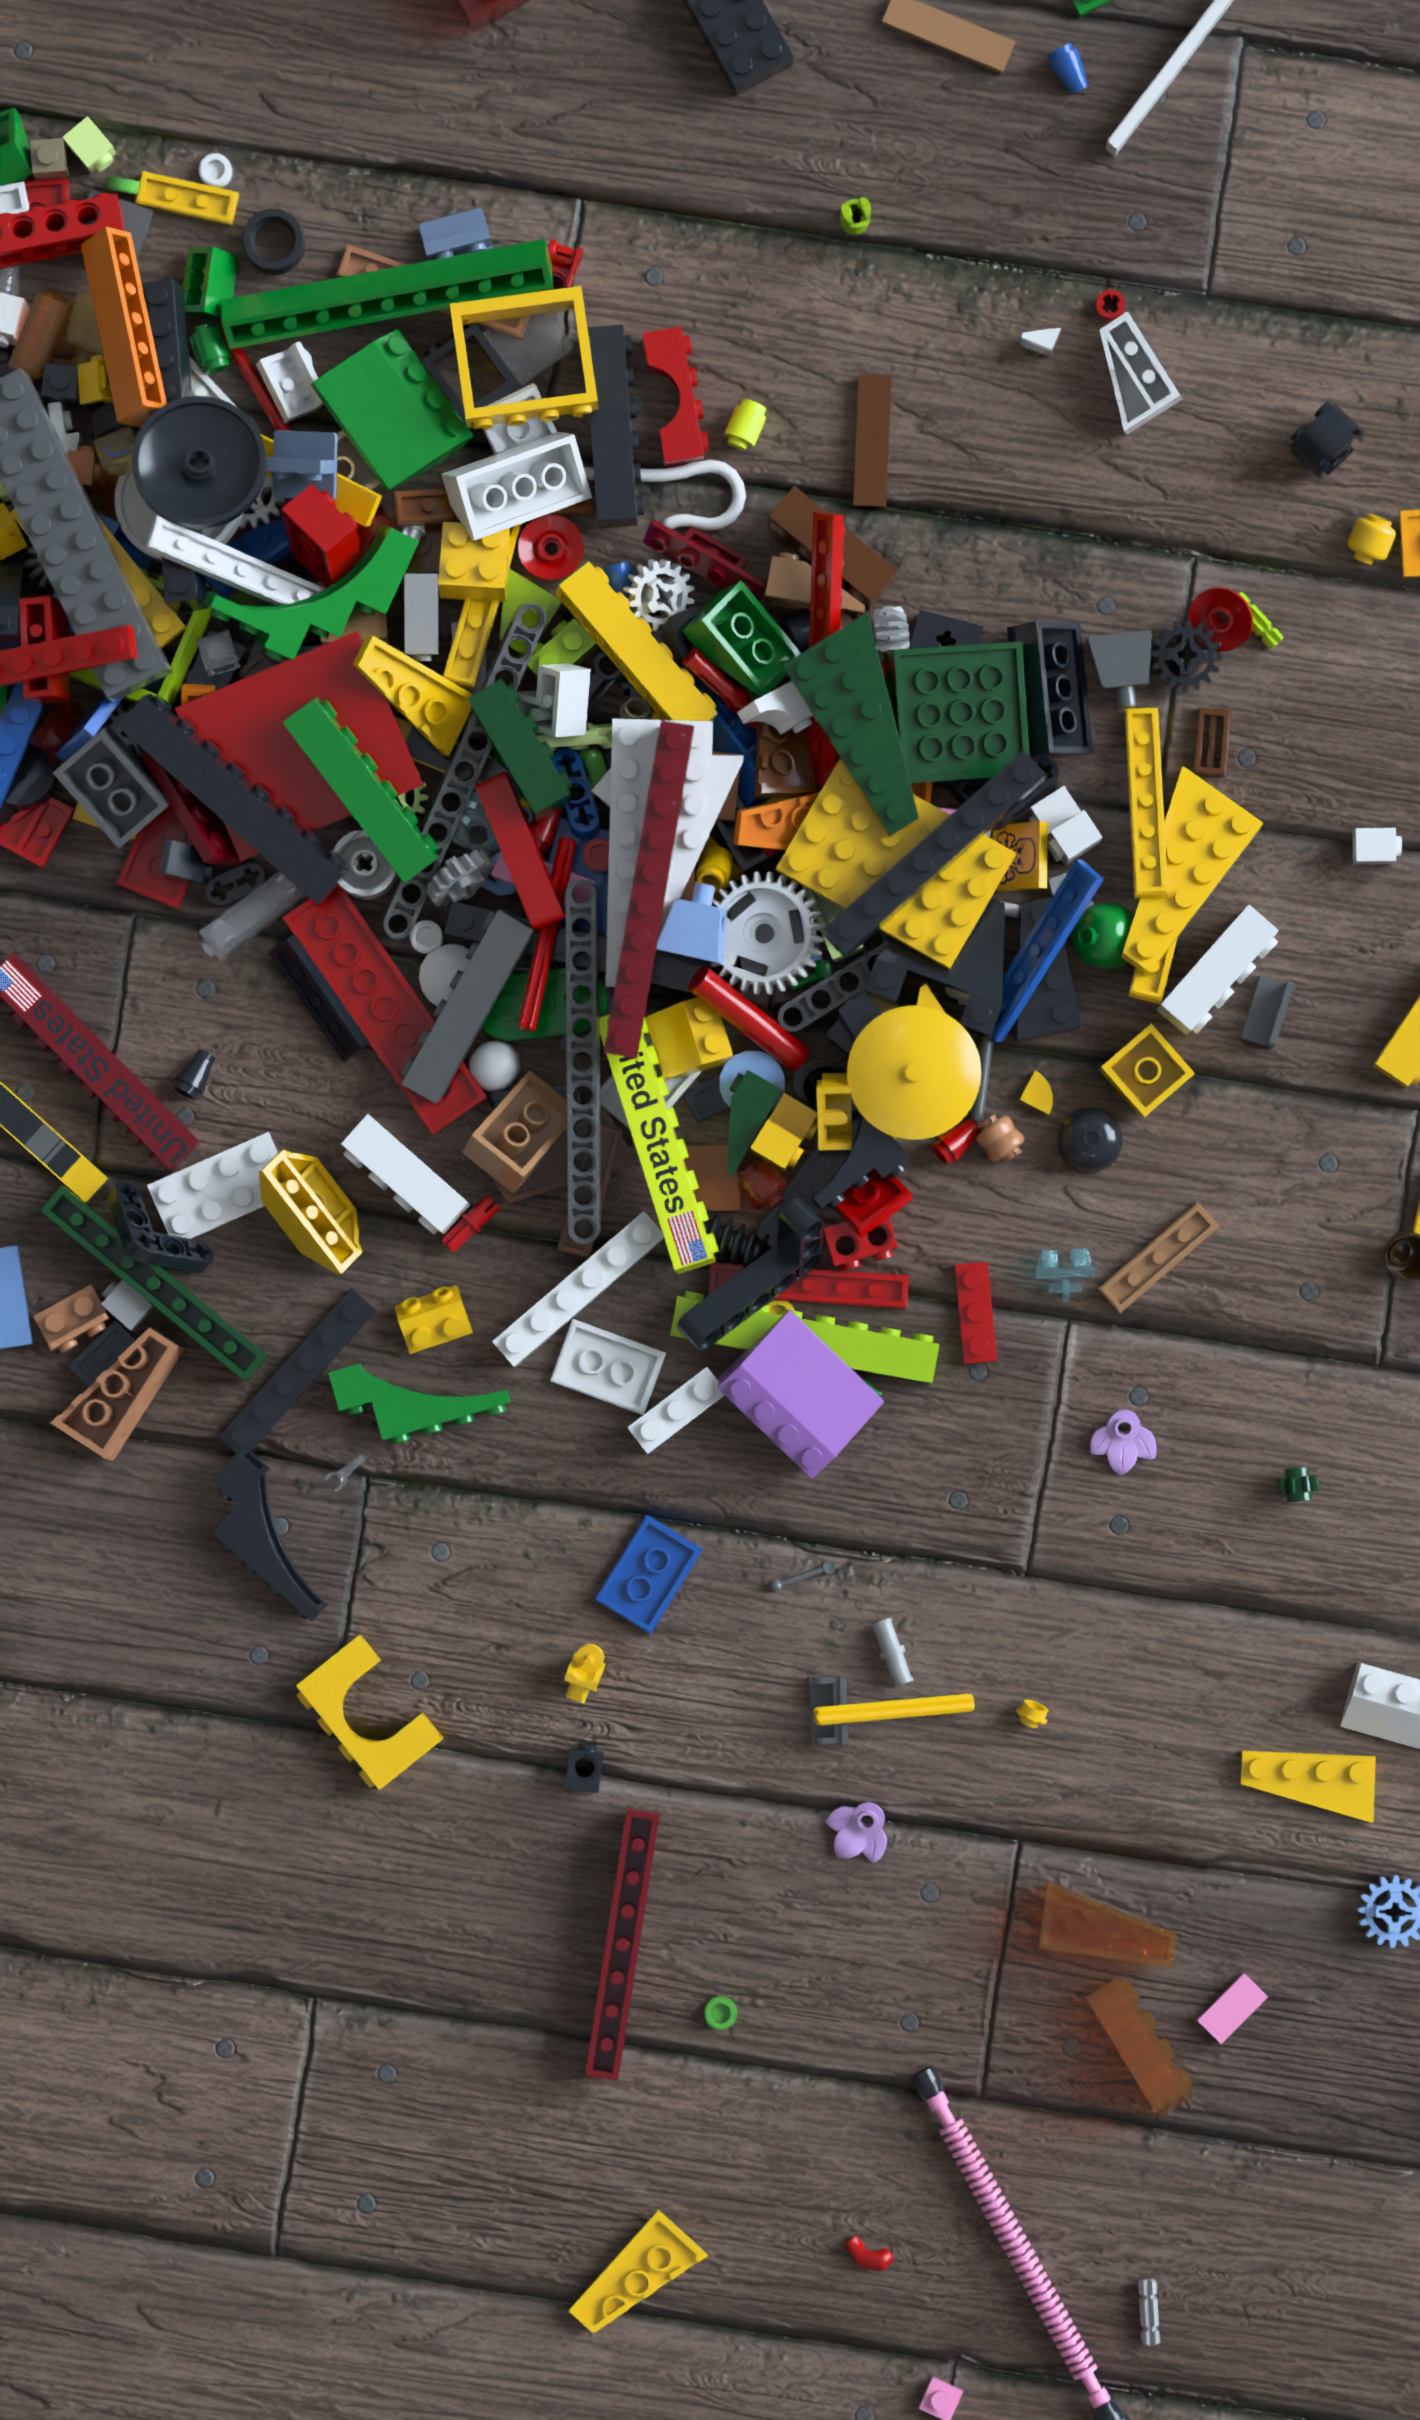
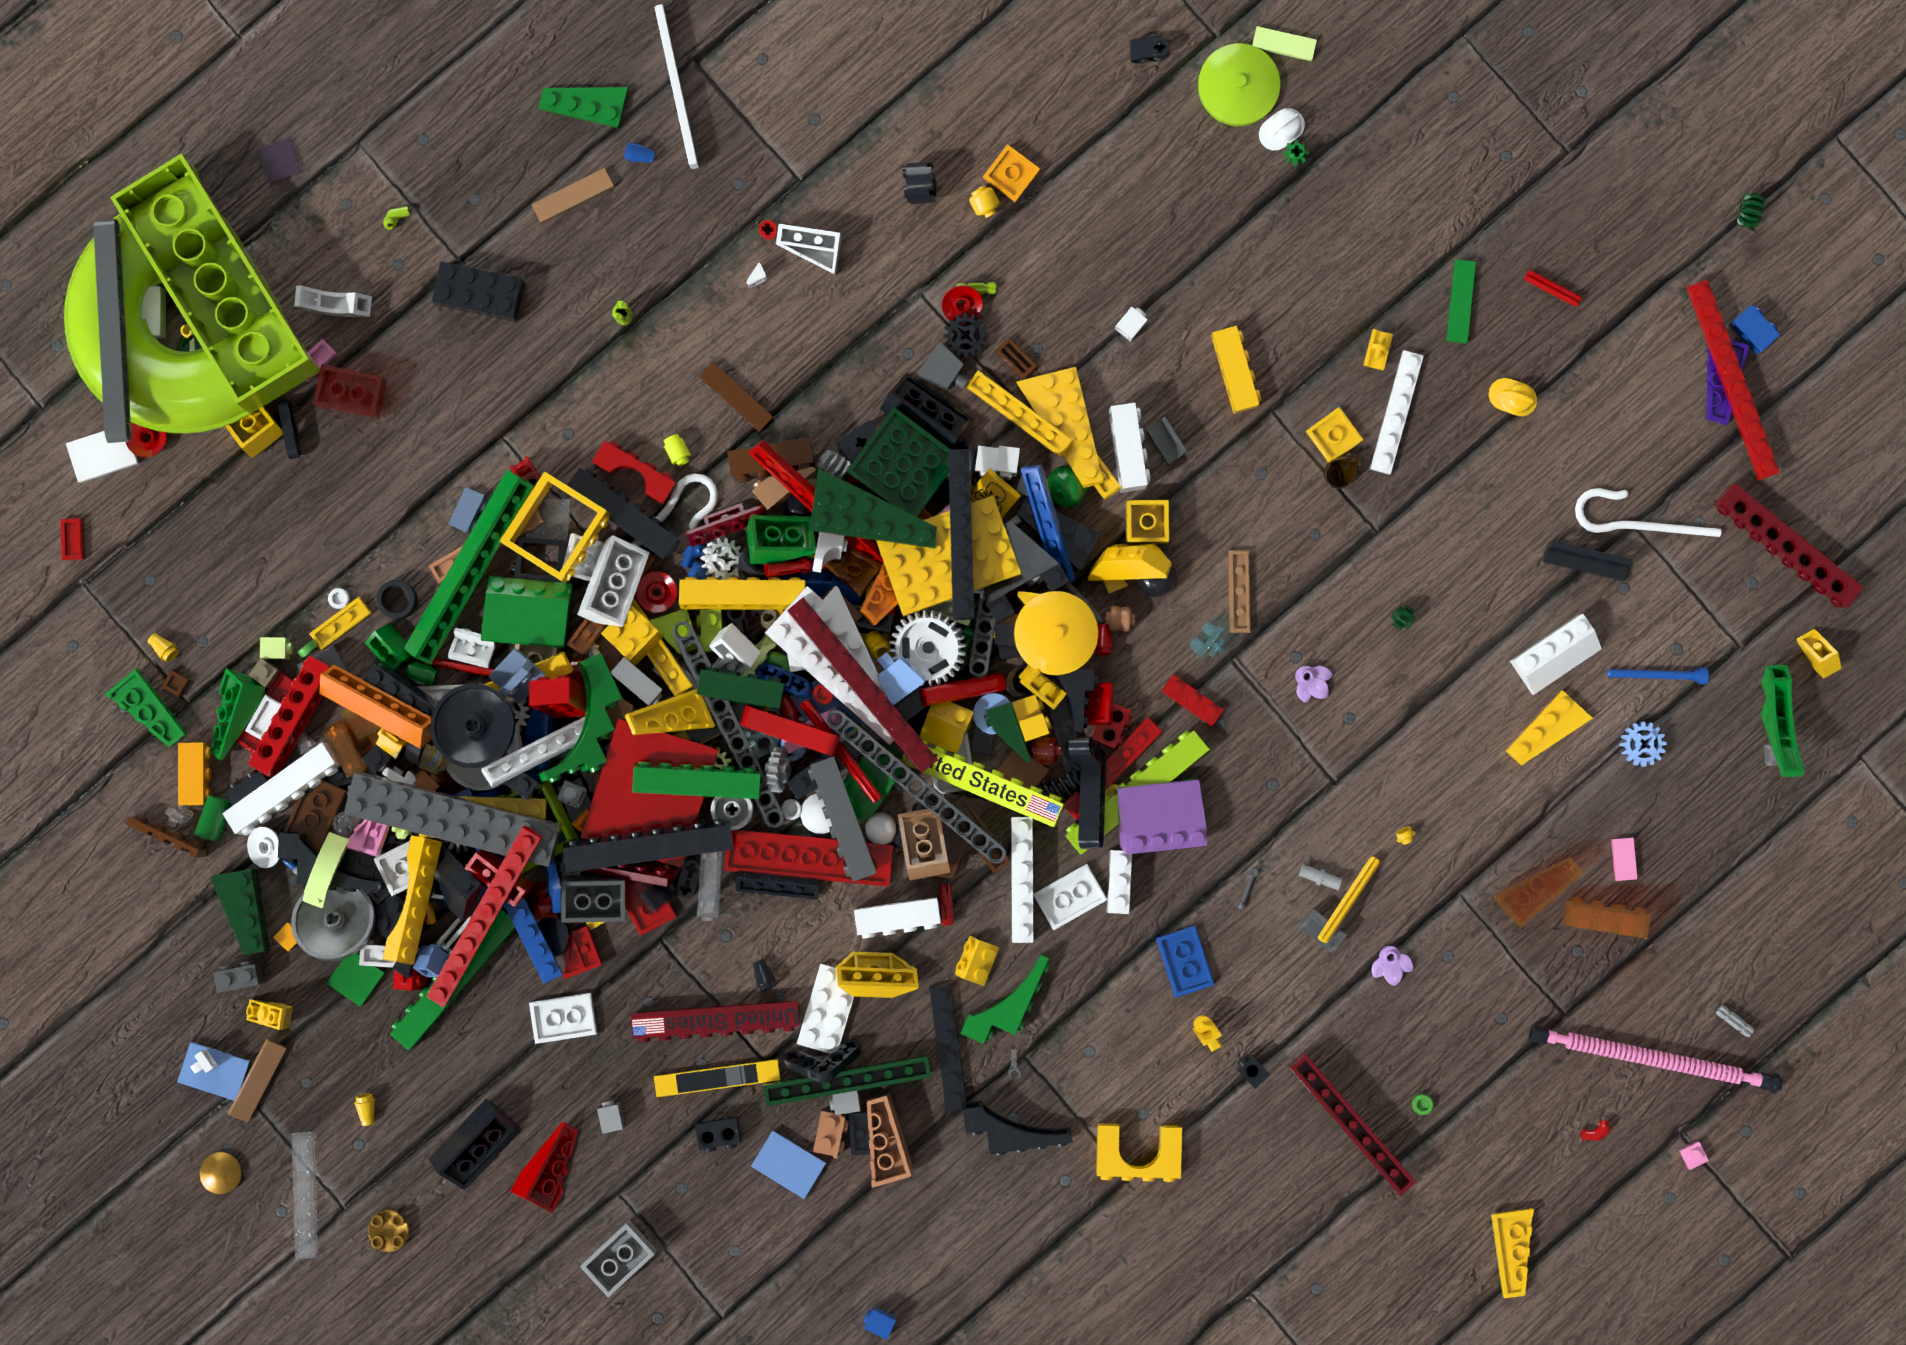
camera: 50 degrees left, 0 degrees up
(633, 549) = (691, 553): none -> blue arm
(1079, 1093) = (1131, 562): none -> yellow wedge

